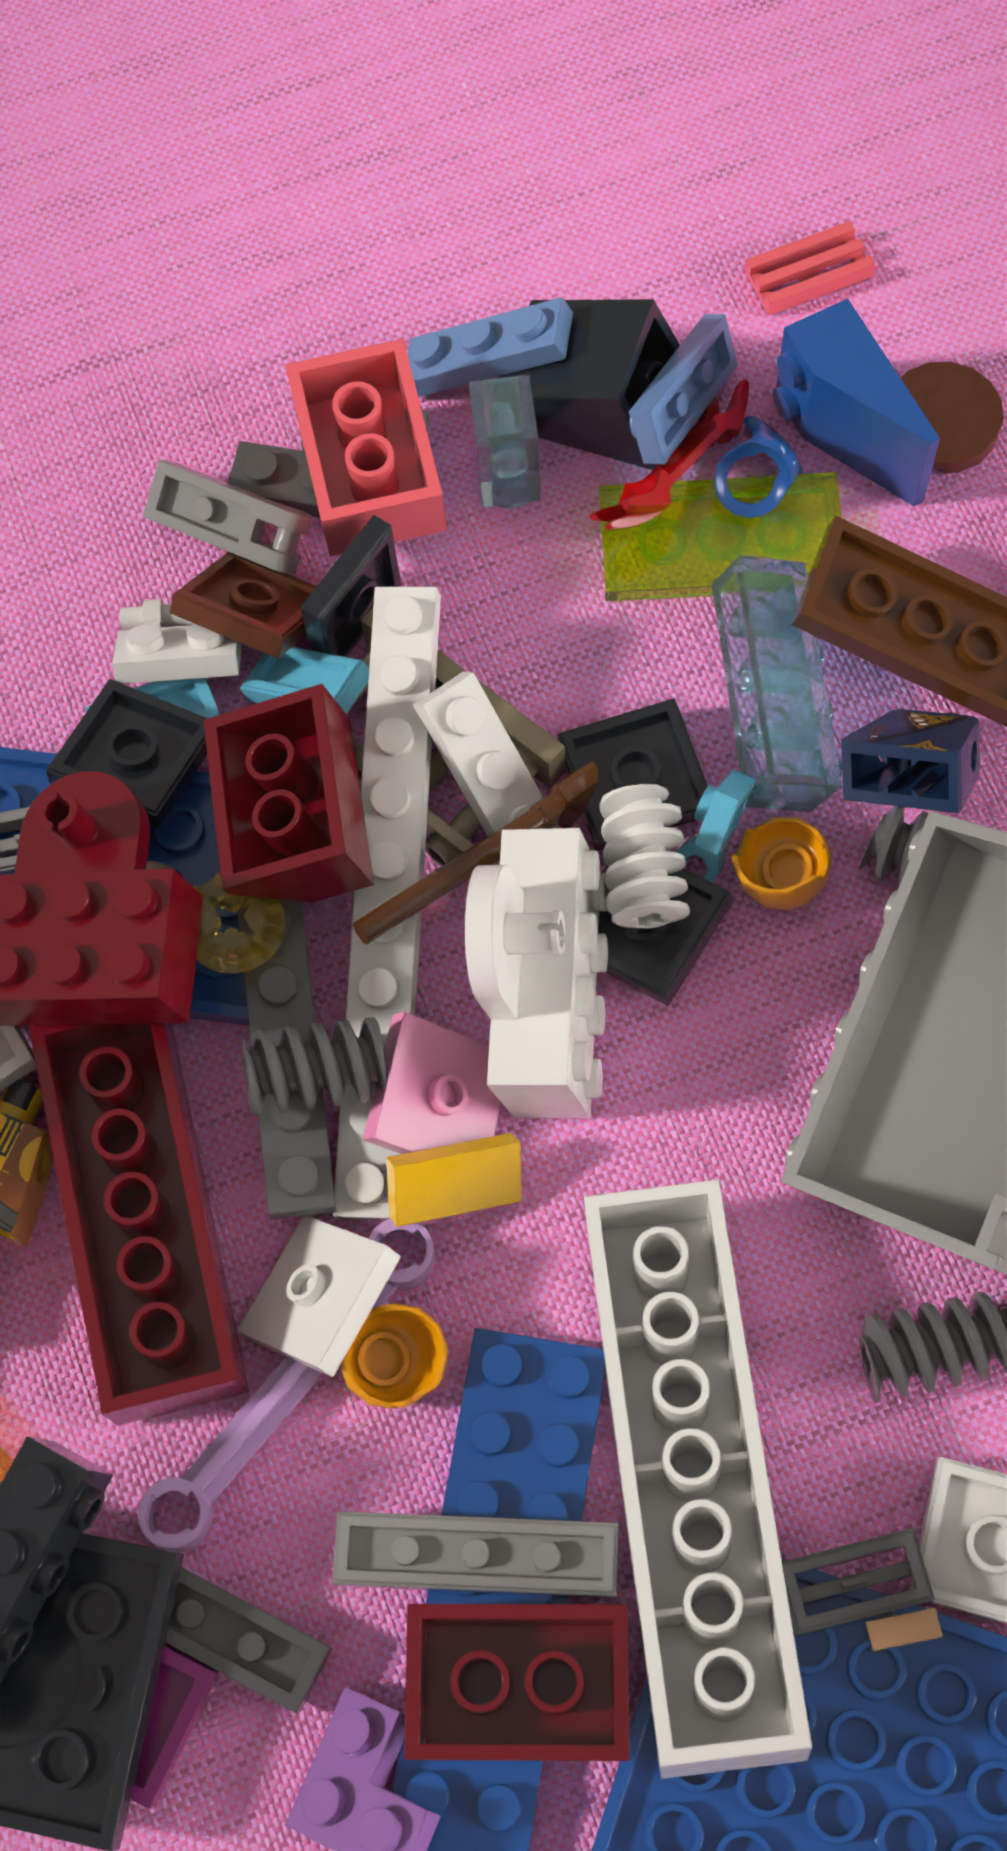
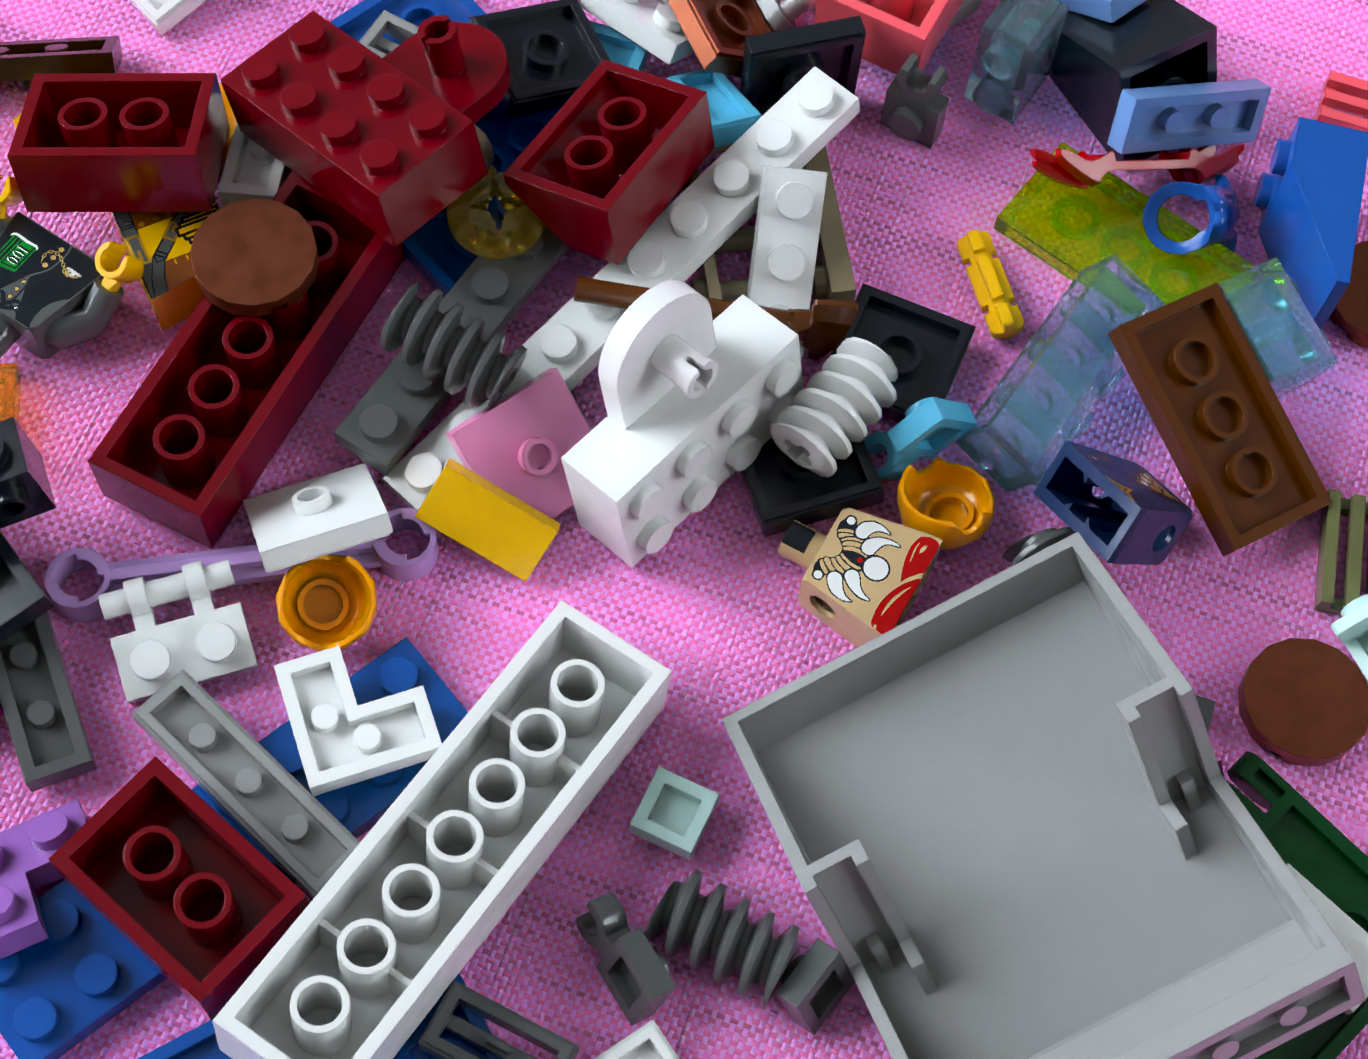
camera: 30 degrees right, 5 degrees down
(74, 1127) = (254, 257): none -> copper tile
(317, 1484) = (204, 645): none -> white plate
(463, 548) = (914, 104): none -> dark grey plate
(515, 1455) = (346, 740): none -> white plate
(649, 652) = (990, 285): none -> yellow axle
(772, 974) = (861, 572): none -> torso
(805, 1284) = (674, 813): none -> light aqua plate
(882, 1432) = (629, 964): none -> dark grey plate
(900, 510) = (1278, 326): none -> clear light blue brick

